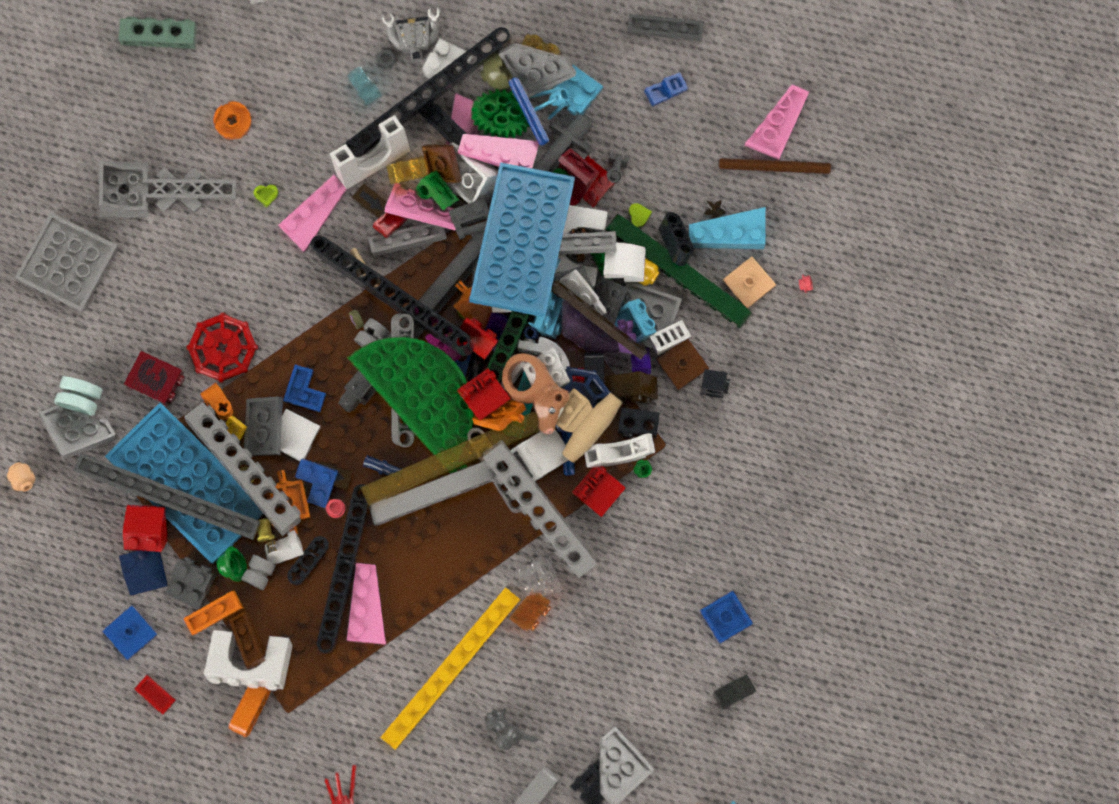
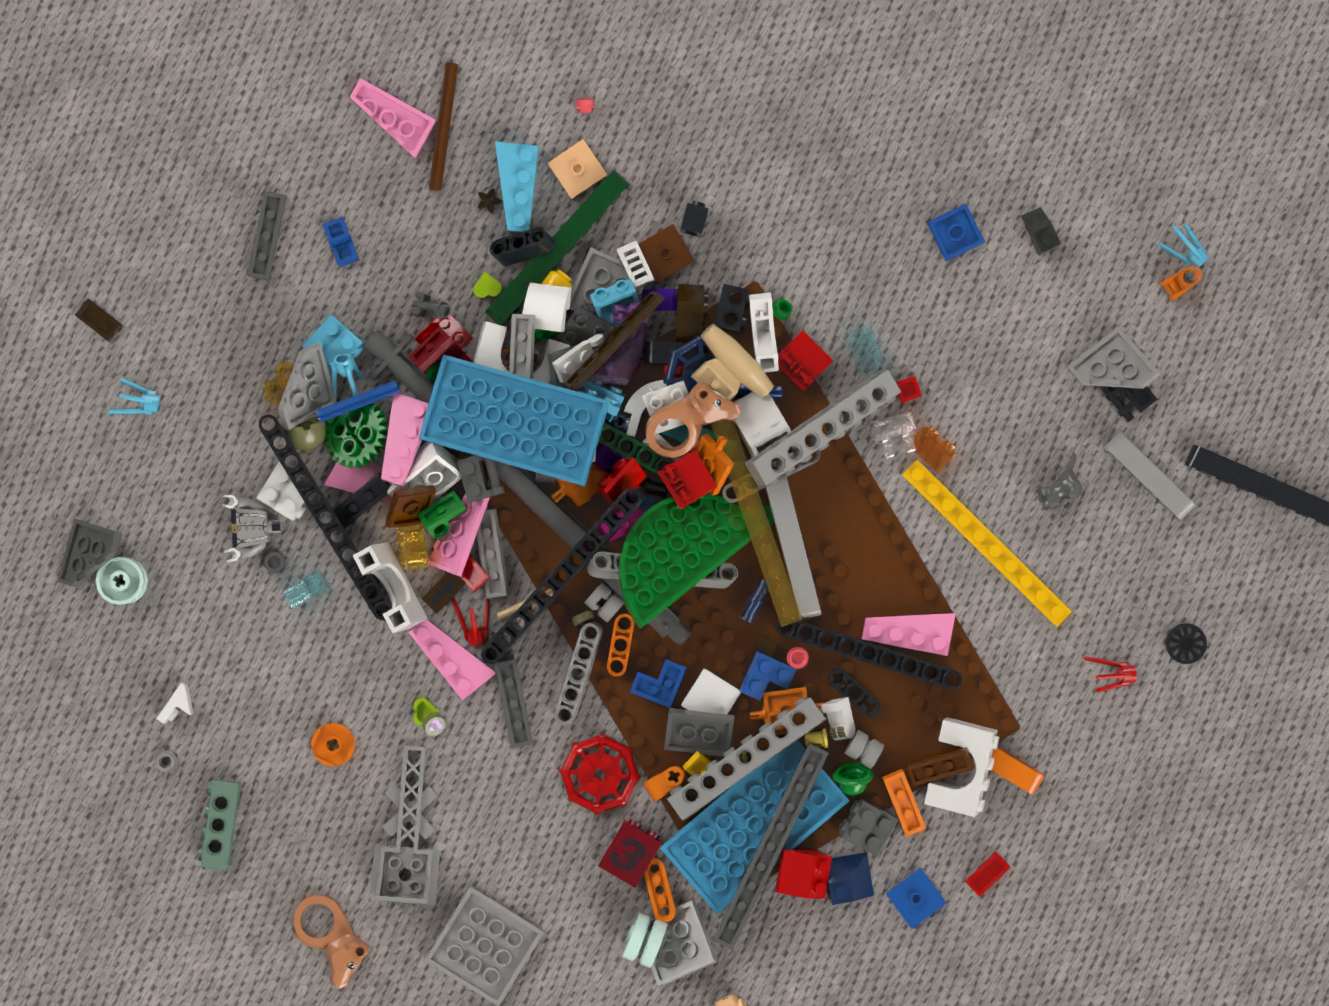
camera: 90 degrees left, 10 degrees up
(59, 144) = (341, 944): none -> nougat animal
(113, 407) = (662, 900): none -> orange plate
(255, 202) = (433, 724): none -> tile
(278, 268) = (513, 703): none -> dark grey plate
(314, 325) = (571, 680): none -> light grey beam
(327, 348) = (615, 654): none -> orange beam
(335, 229) = (475, 634): none -> red plant
(581, 586) = (909, 389): none -> red plate
(614, 544) = (864, 348): none -> clear light blue panel

